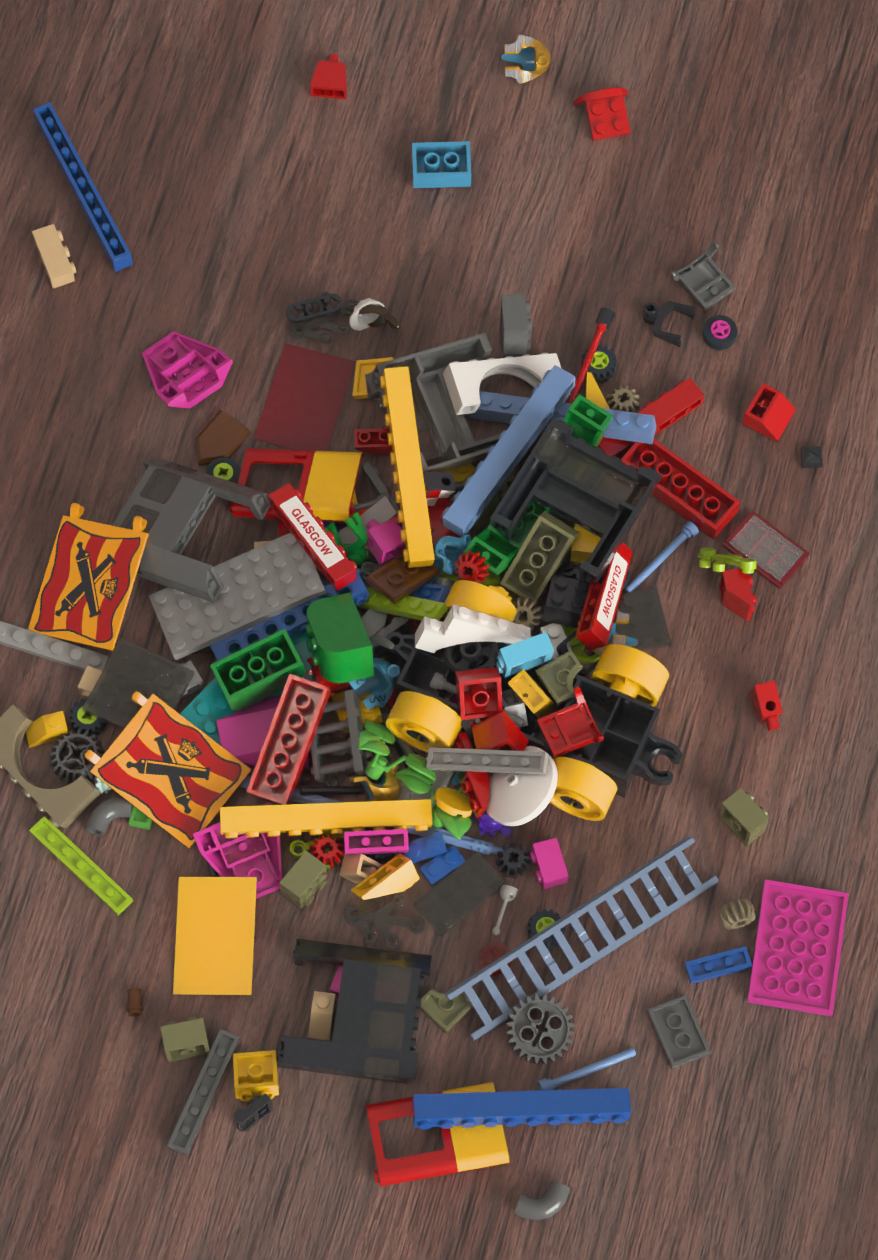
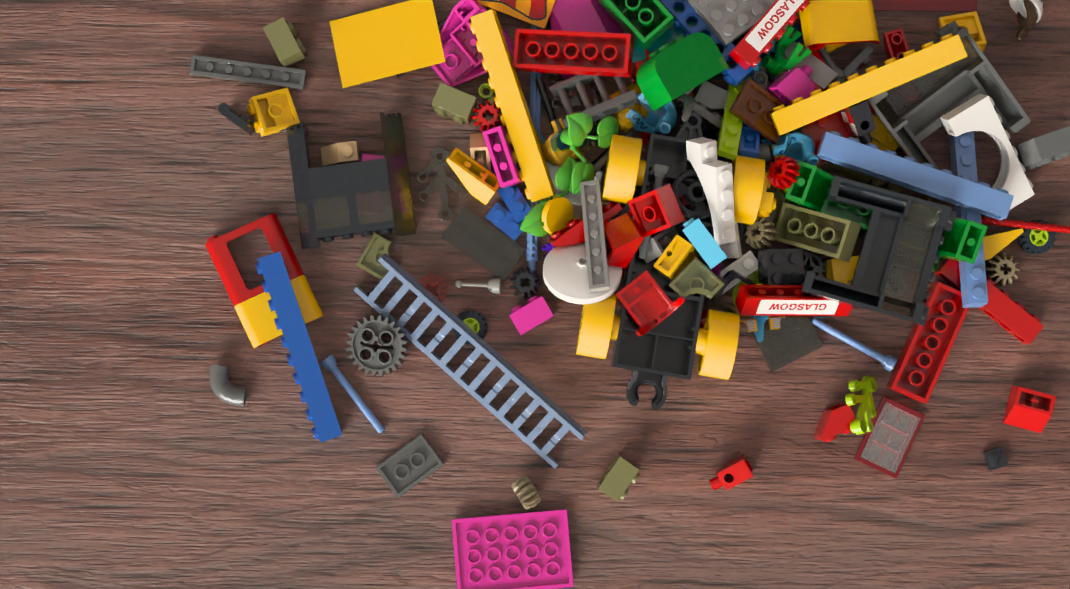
camera: 75 degrees right, 20 degrees up
(718, 965) = (477, 486): blue plate -> none

